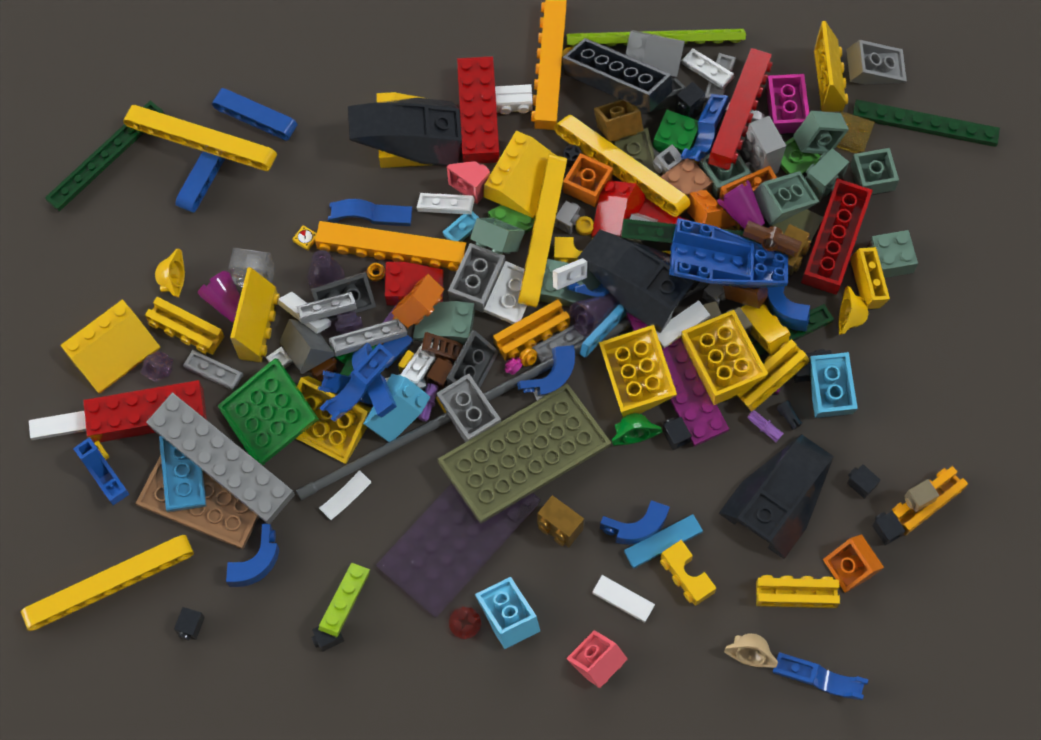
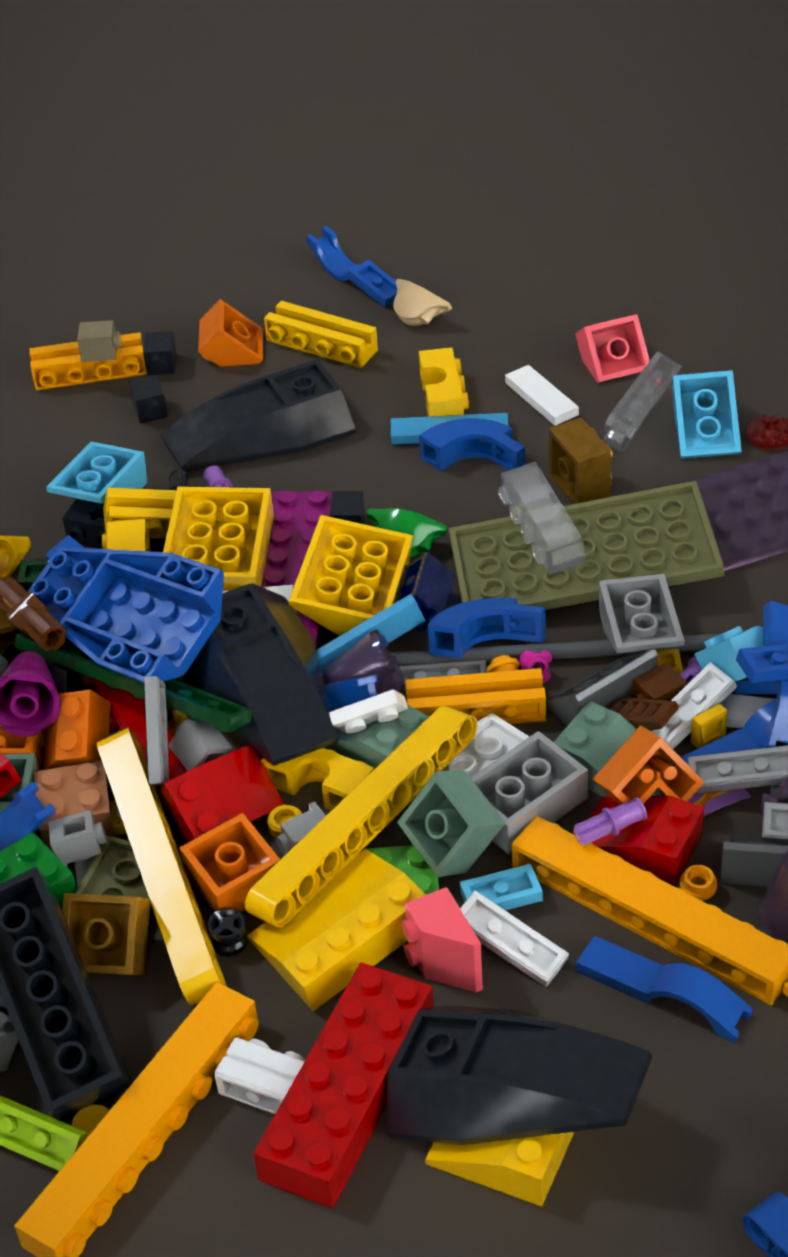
camera: 150 degrees left, 25 degrees down
(424, 266) = (610, 821): none -> medium lavender axle
(552, 602) = (639, 402): none -> clear brick
(555, 453) = (541, 518): none -> clear brick
(596, 385) = (428, 584): none -> clear blue brick
(658, 205) = (156, 731): none -> light grey tile

